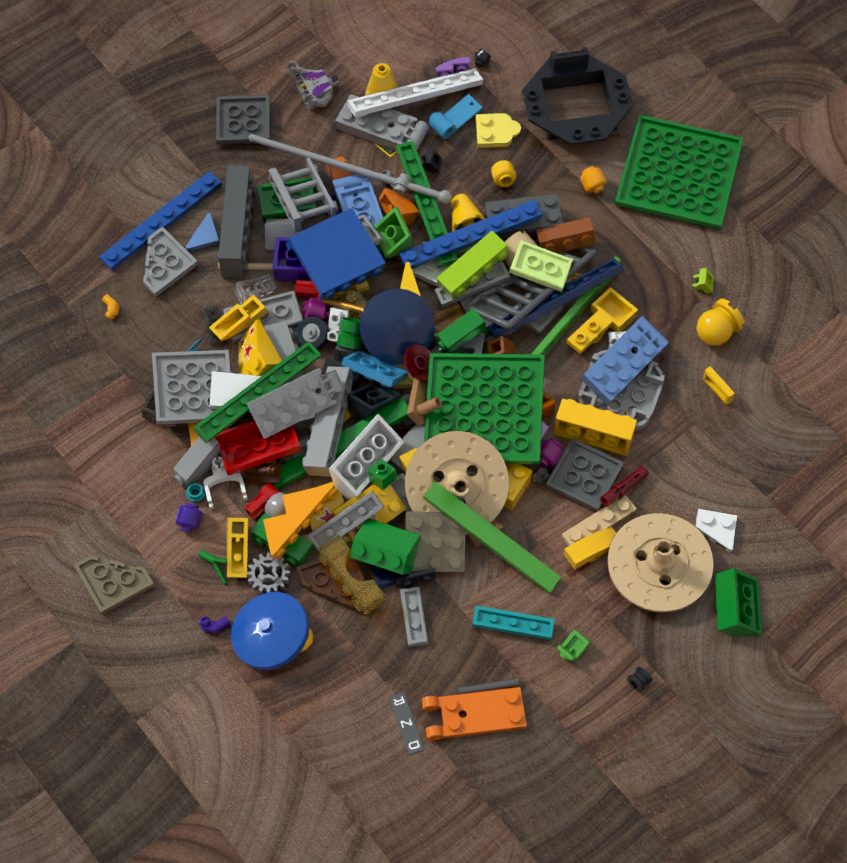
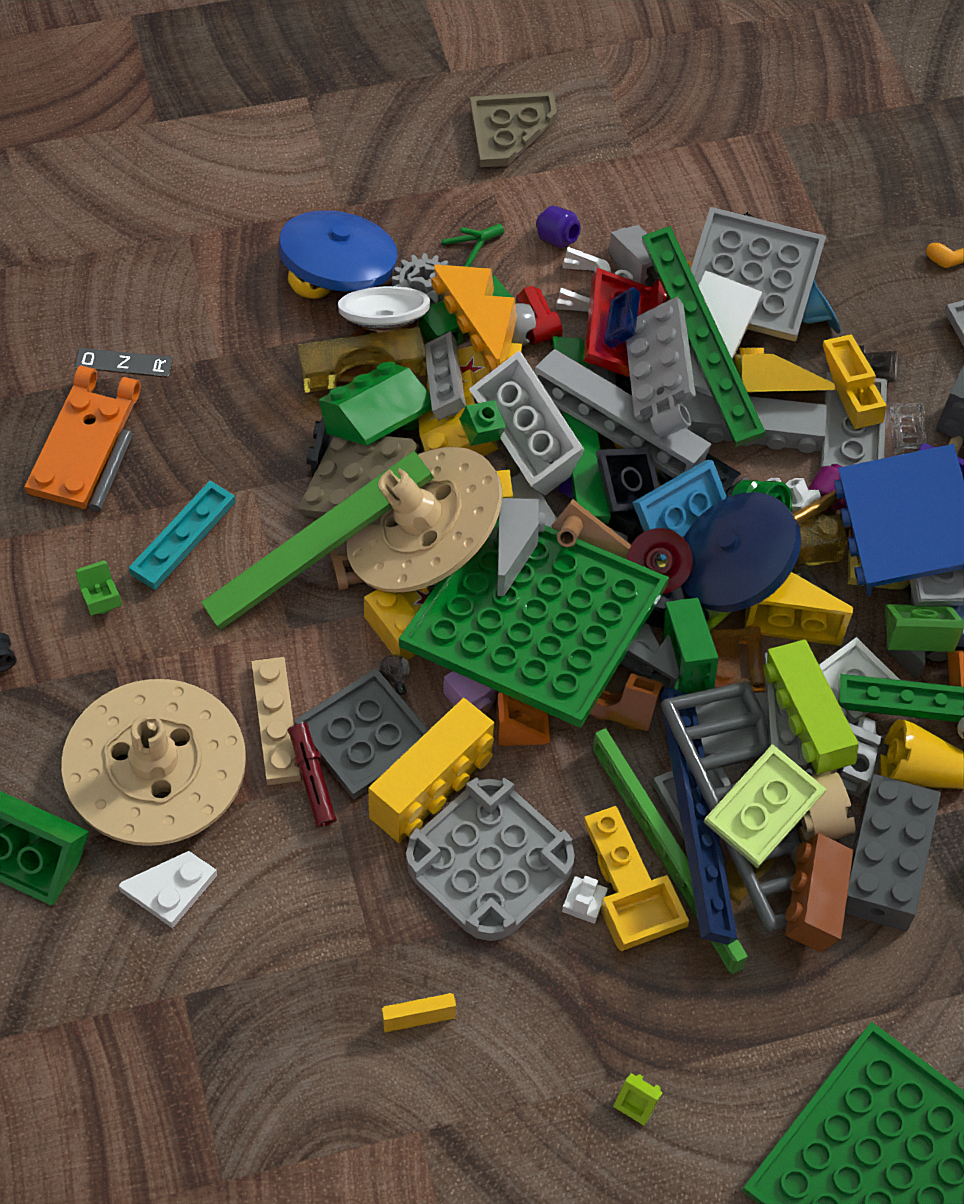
camera: 110 degrees right, 5 degrees down
(195, 487) = (596, 247): teal plate -> none
(212, 626) = (386, 205): dark purple arm -> none
(237, 547) = (507, 260): yellow slope -> none
(263, 473) = (575, 327): reddish brown hinge -> none
(265, 436) = (622, 317): none -> clear blue tile
(302, 571) = (384, 307): none -> white dish
(312, 330) = (791, 464): black wheel -> none
(414, 617) = (267, 426): light grey tile -> none
(445, 424) = (517, 537): none -> light grey slope
(471, 234) = (876, 740): blue plate -> none
(550, 452) = (426, 693): magenta head -> none
(589, 548) = (237, 680): yellow slope -> none
(593, 179) = (933, 1007): light orange head -> none
(619, 365) = (522, 858): medium blue hinge -> none
(719, 323) = (531, 1061): yellow tile -> none

